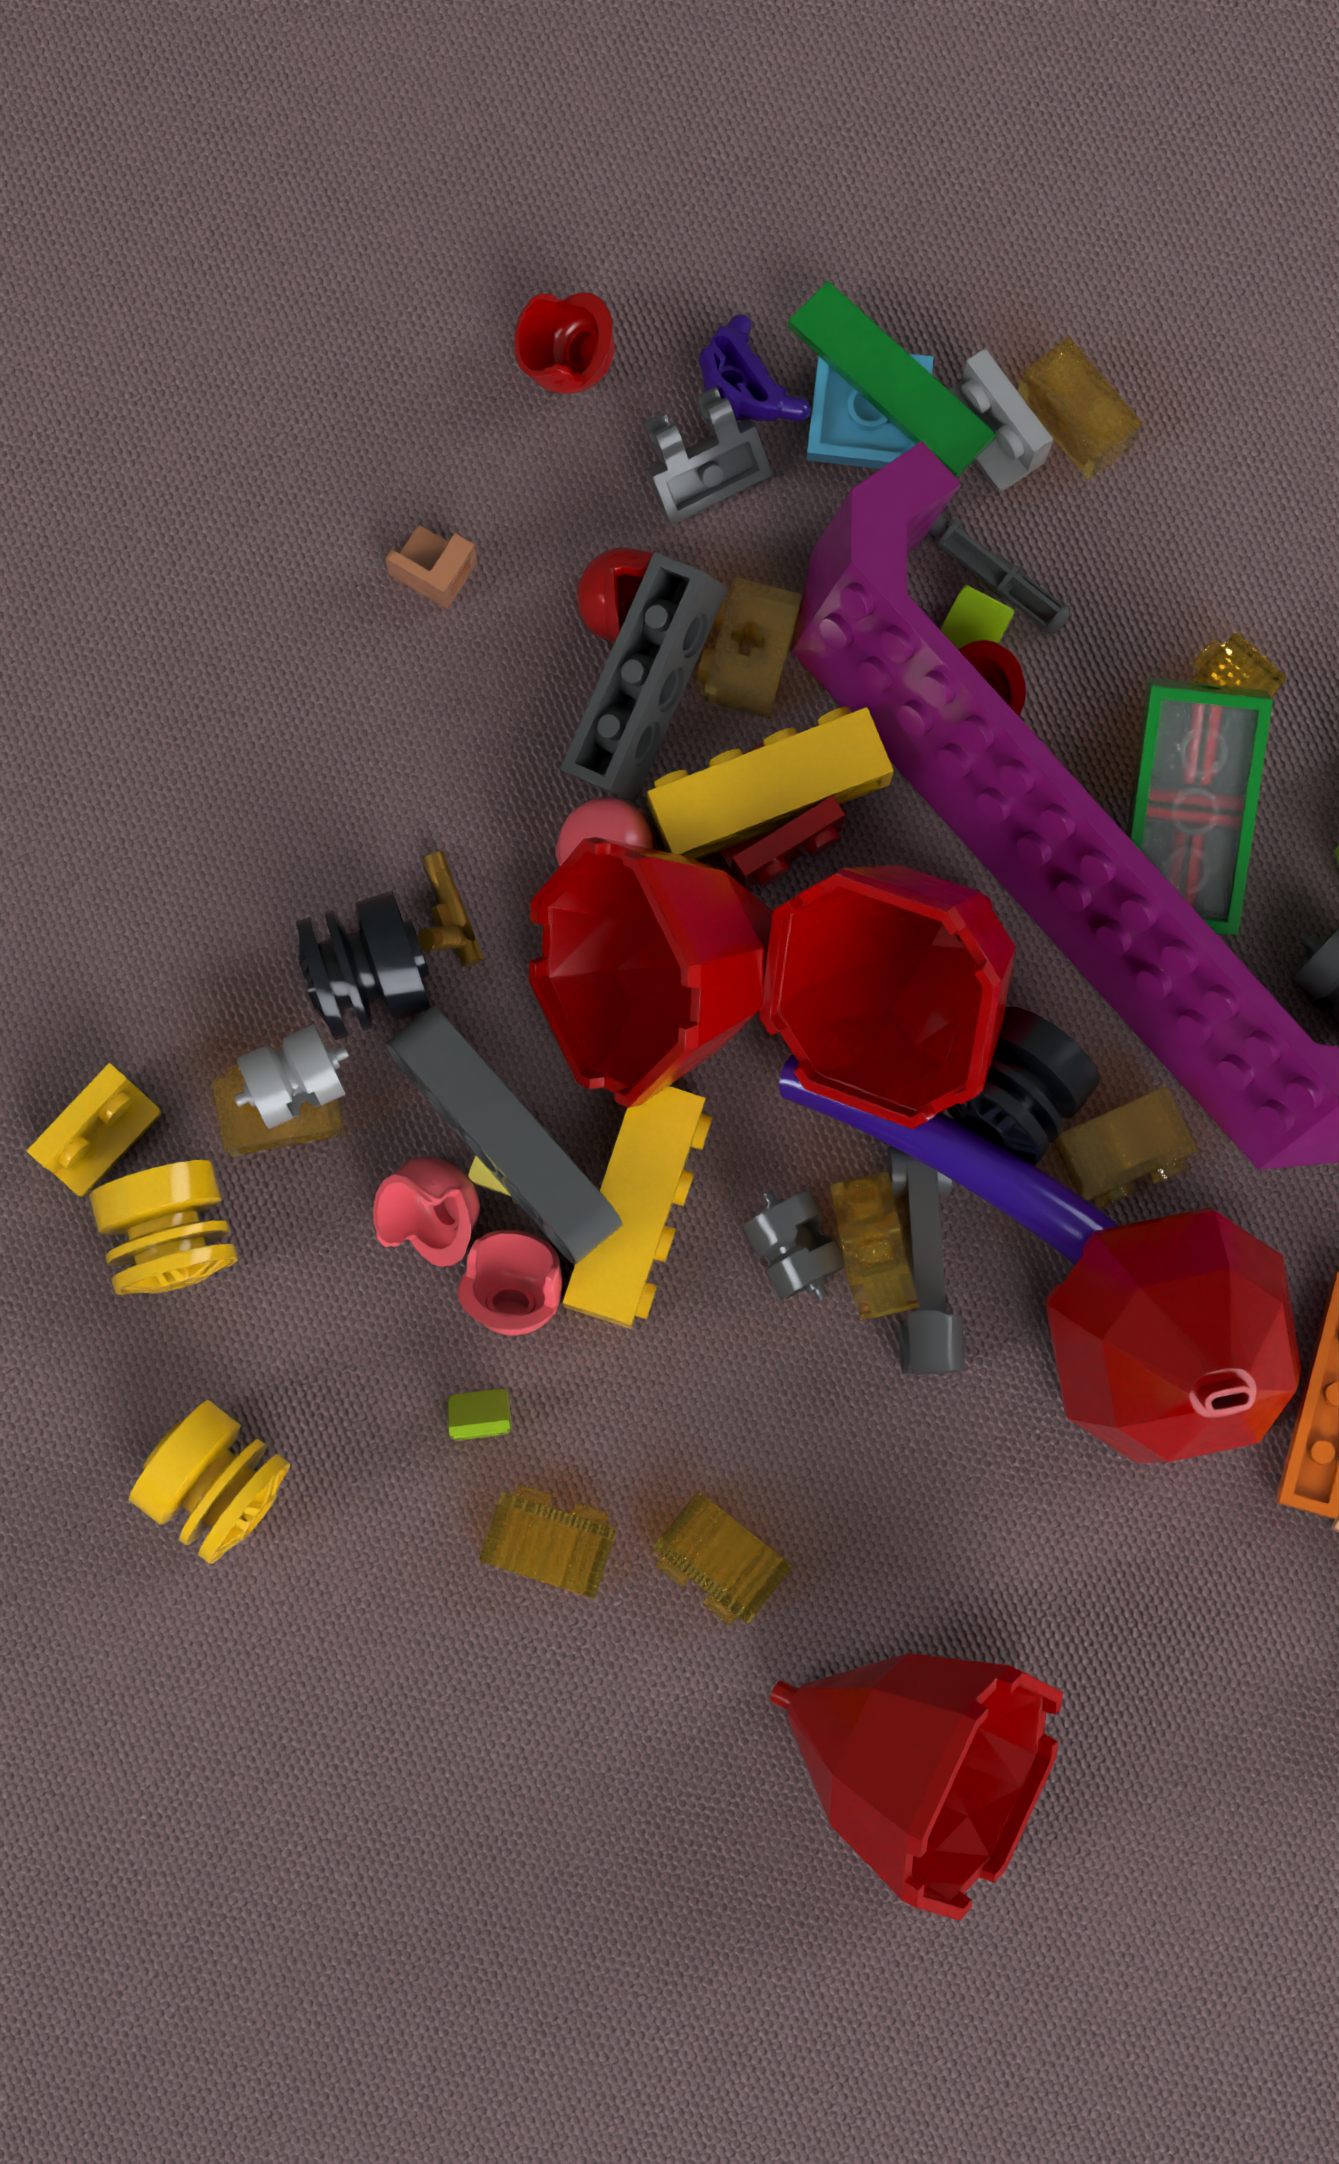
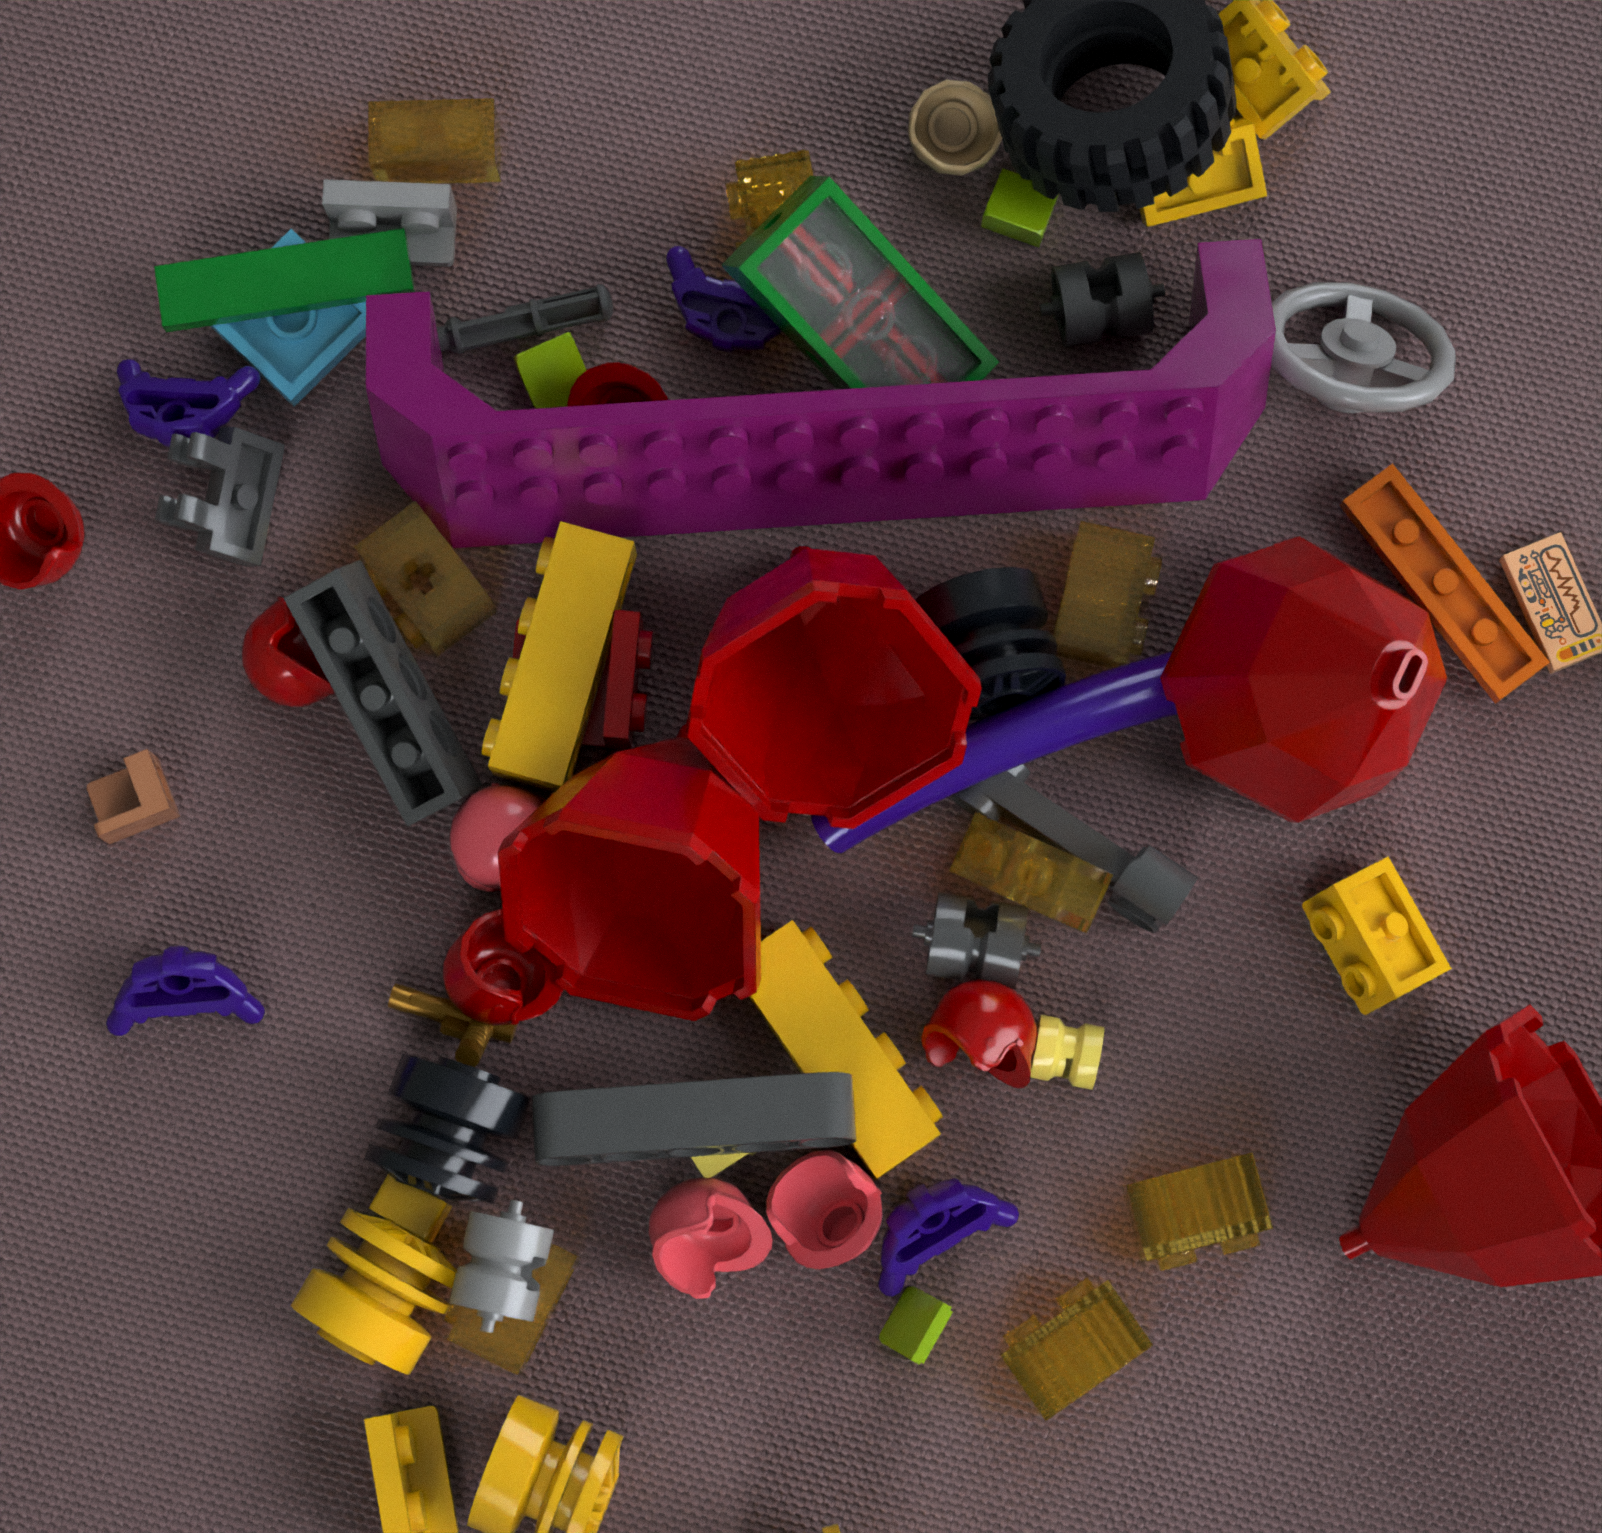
camera: 50 degrees left, 0 degrees up
(202, 1006) = (373, 1300): none -> yellow wheel
(287, 985) = (410, 1208): none -> yellow piece
(325, 700) = (181, 985): none -> dark purple piece
(496, 917) = (494, 980): none -> red helmet
(564, 1371) = (934, 1222): none -> dark purple piece
(735, 1301) = (990, 1027): none -> red helmet
(763, 1374) = (1067, 1052): none -> light yellow wheel
(1028, 1541) = (1375, 936): none -> yellow bracket
(1116, 703) = (717, 308): none -> dark purple piece

